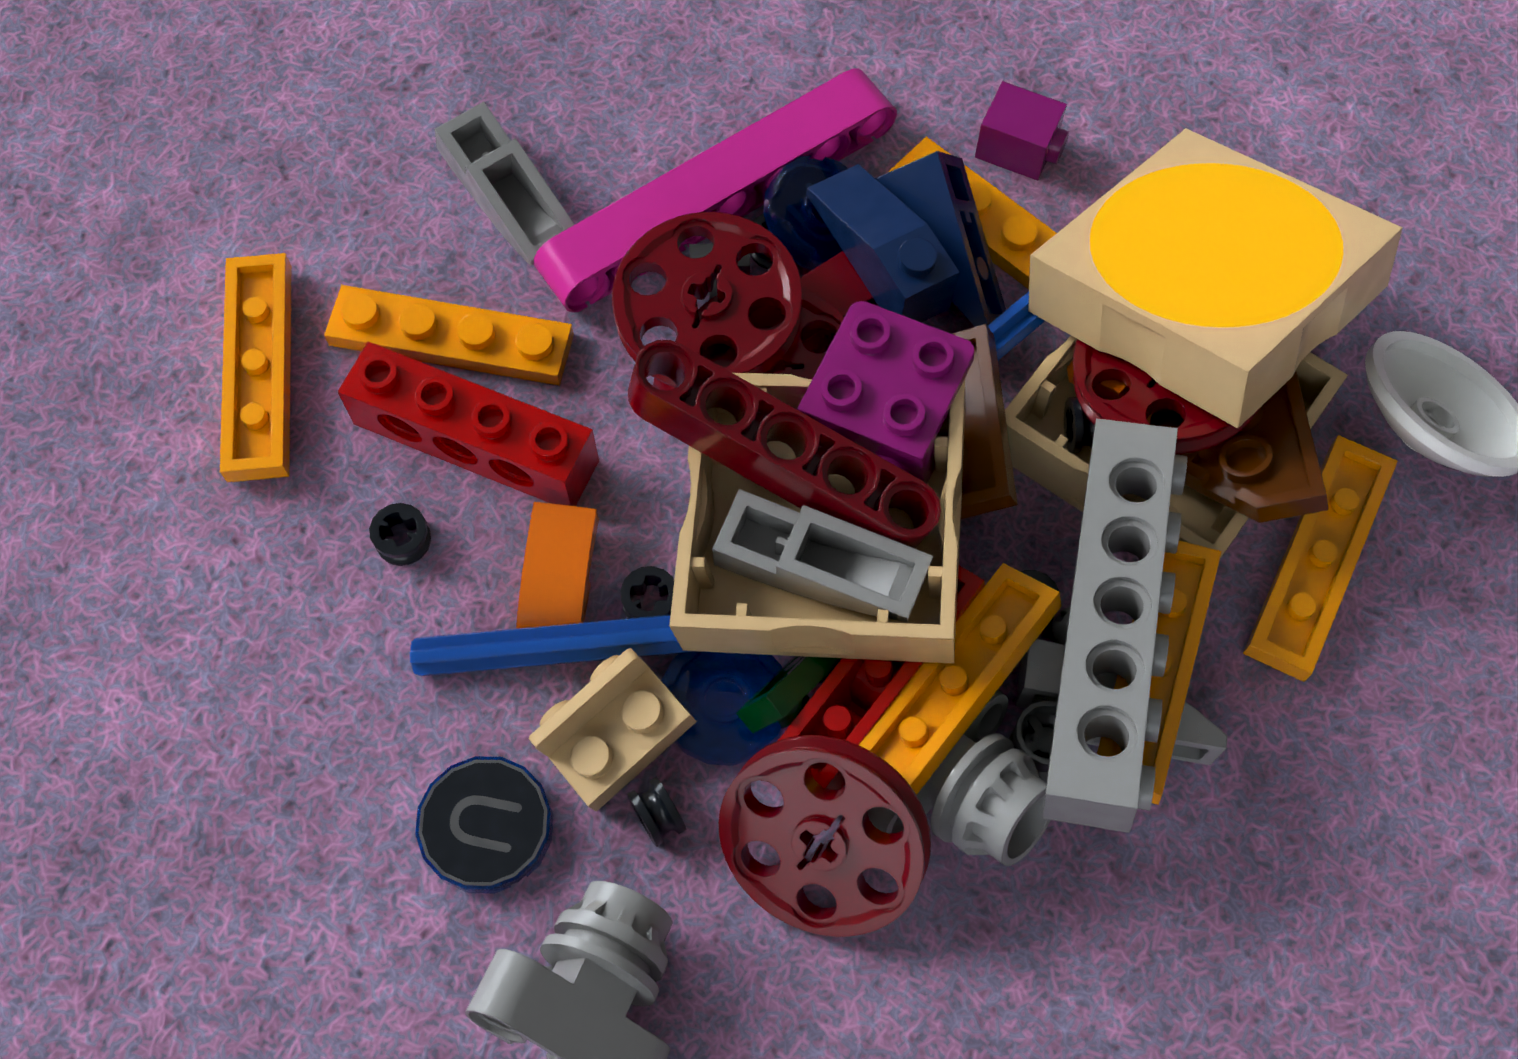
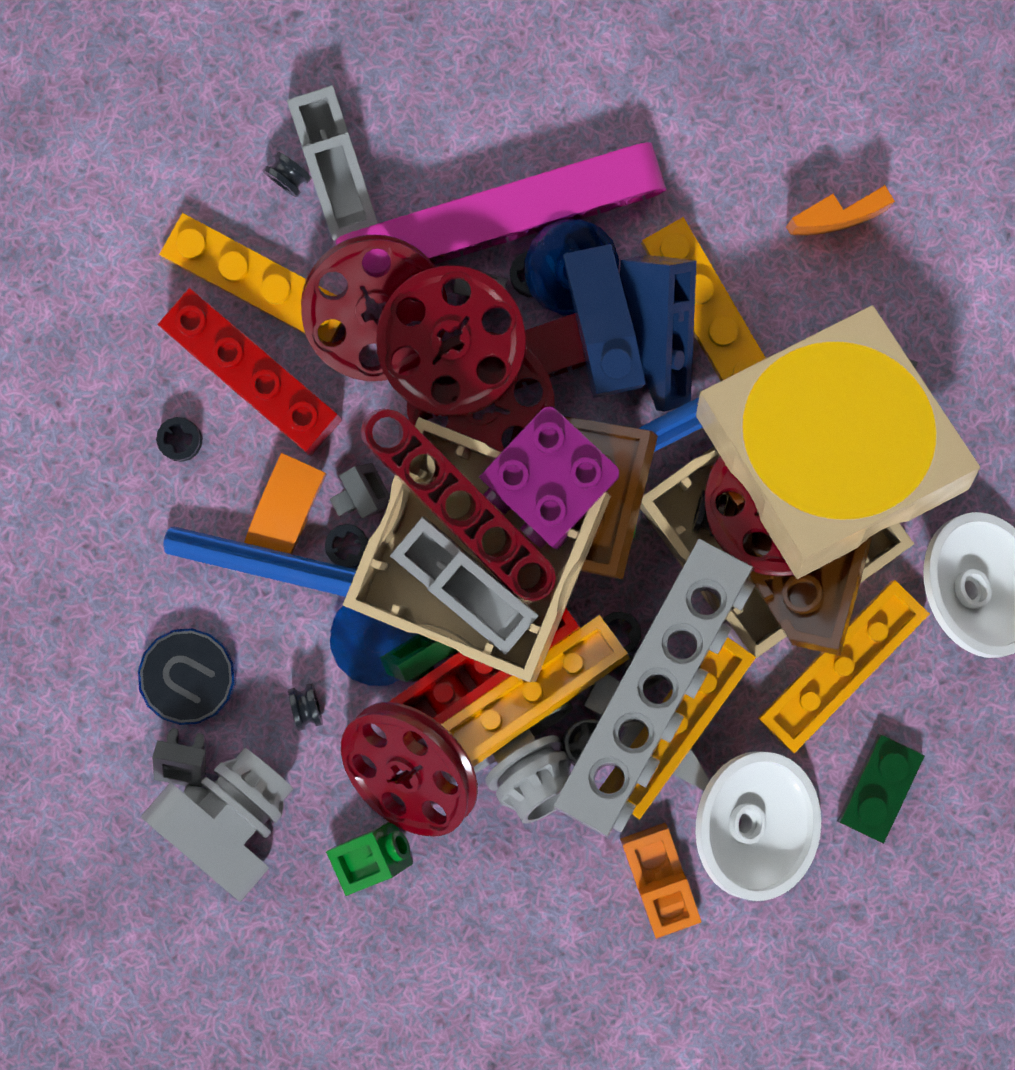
camera: 15 degrees right, 20 degrees up
(256, 368) = (102, 264): light orange plate -> none
(456, 212) = (287, 174): none -> black bush
(501, 928) = (178, 762): none -> dark grey tile
(570, 315) = (351, 303): none -> dark red wedge
(611, 728) = (292, 640): tan bracket -> none
(649, 526) = (363, 492): none -> dark grey tile
(806, 991) = (370, 858): none -> green bracket
(1022, 131) = (761, 239): magenta brick -> none
(1094, 89) = (830, 217): none -> orange slope
(1208, 901) = (660, 880): none -> orange slope
(1310, 775) = (776, 829): none -> white dish
(1435, 692) = (881, 788): none -> dark green plate

